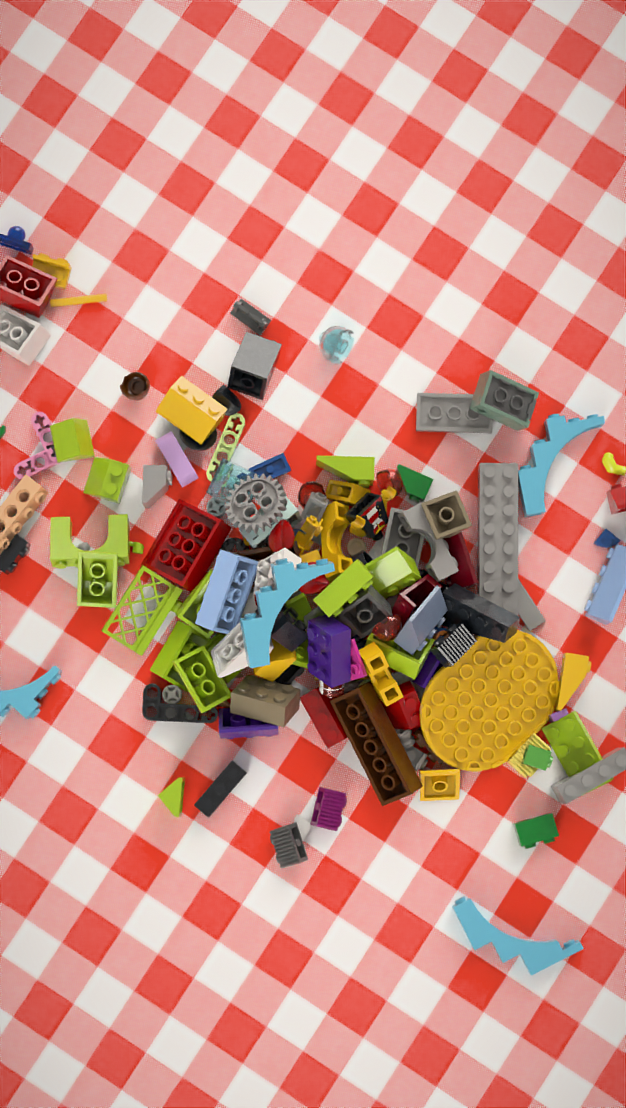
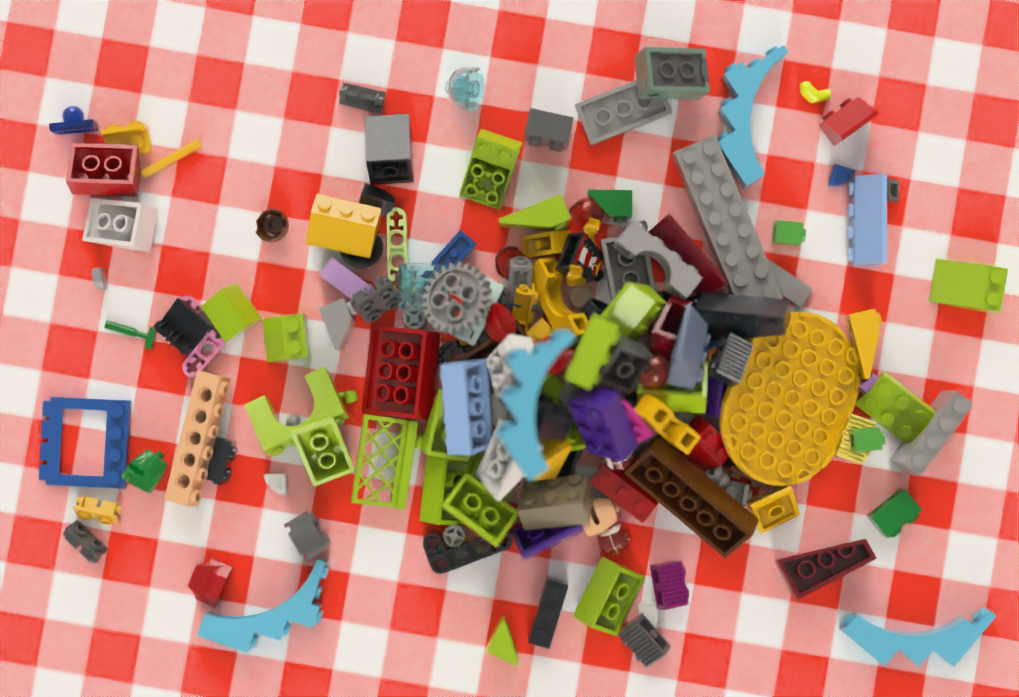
camera: 20 degrees left, 5 degrees up
(28, 436) = (182, 327): none -> black hinge
(49, 591) = (277, 482): none -> white tile
(54, 643) = (307, 536): none -> dark grey brick
(191, 481) = (377, 302): none -> dark grey hinge
(275, 798) = (608, 596): none -> lime slope
(296, 729) = (602, 516): none -> light nougat helmet
(299, 753) = (615, 540): none -> clear red head
(328, 415) = (490, 168): none -> lime slope
(387, 403) = (548, 130): none -> dark grey brick
(446, 515) = (665, 224): dark tan slope -> none
(458, 847) = (820, 567): none -> dark red wedge
(545, 567) = (788, 233): none -> bright green brick

